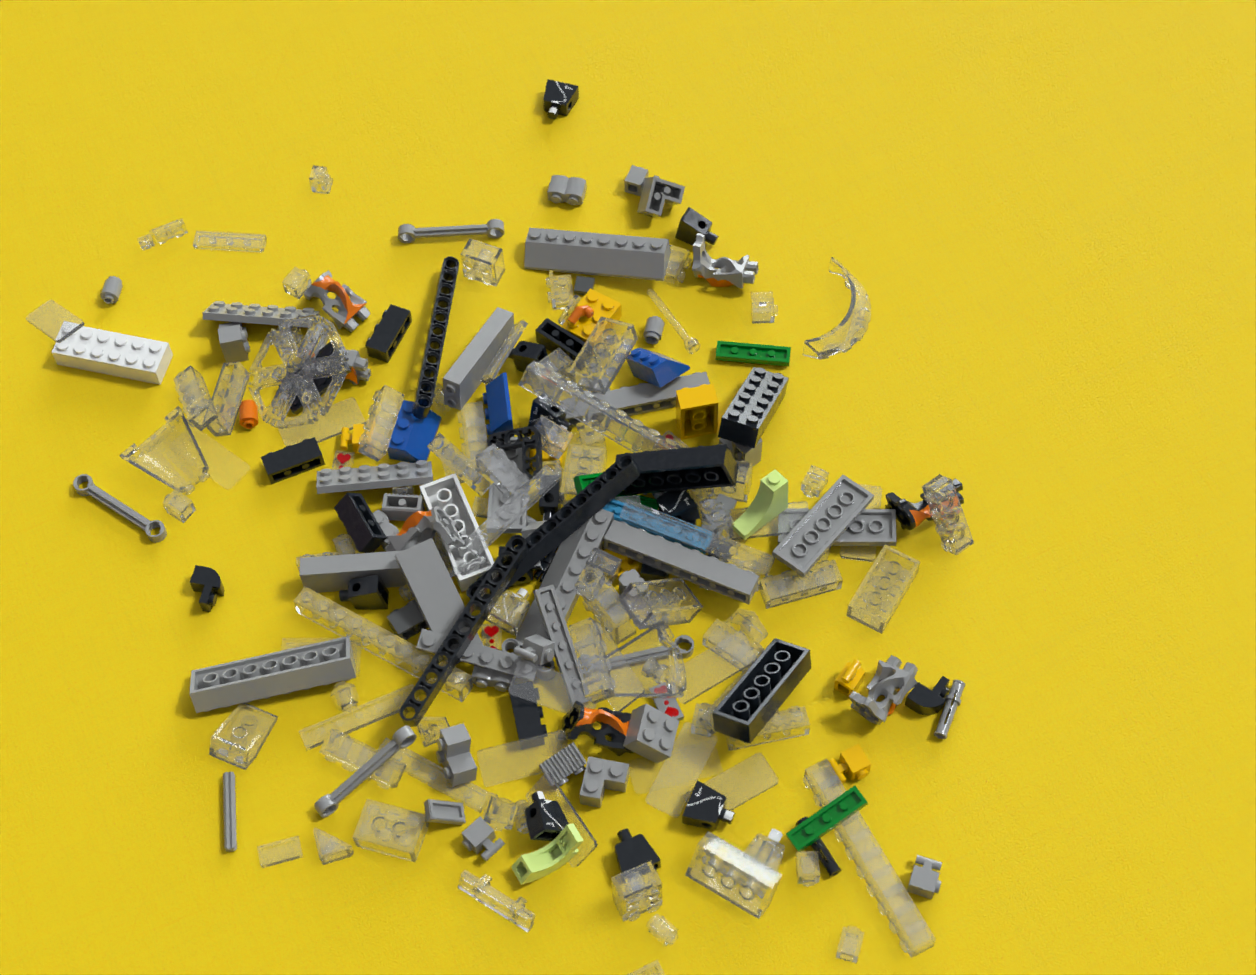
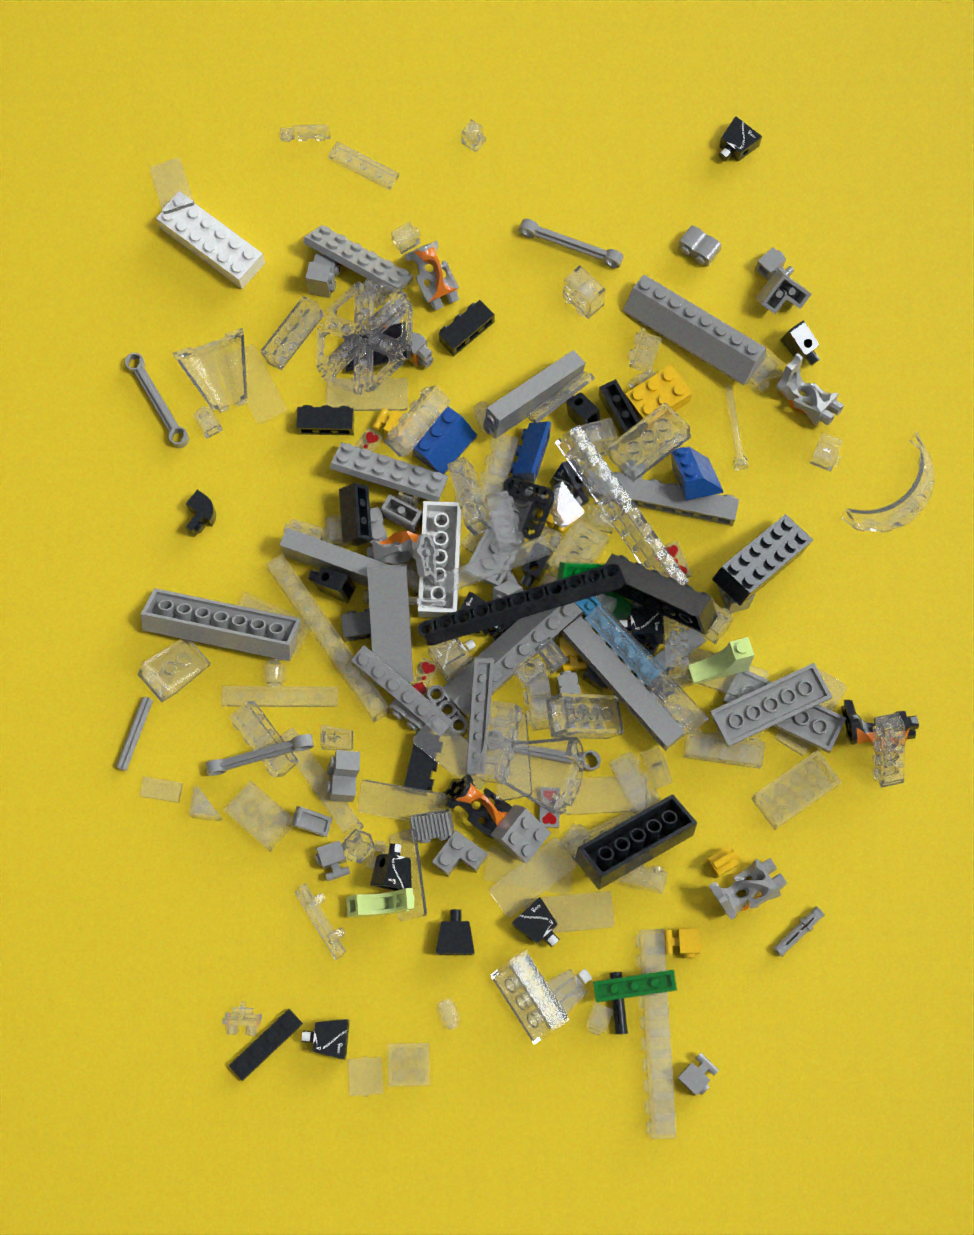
camera: 25 degrees right, 15 degrees up
(111, 290) = (236, 172): light grey brick -> none
(195, 398) = (263, 322): clear brick -> none
(248, 414) = (305, 356): orange brick -> none
(435, 338) = (500, 357): black beam -> none
(464, 639) = (388, 667): black beam -> none
(536, 649) = (453, 712): light grey brick -> none
(580, 311) = (648, 387): orange arm -> none
(583, 285) = (669, 355): dark grey tile -> none
(637, 891) = (439, 974): clear brick -> none
(653, 330) = (712, 431): light grey brick -> none
(655, 670) = (551, 776): clear wheel -> none
(696, 411) = (709, 538): yellow brick -> none
(753, 353) = (794, 496): green plate -> none
(814, 481) = (789, 649): clear brick -> none
(850, 944) = (602, 1103): clear brick -> none
(928, 701) = (781, 915): black brick -> none

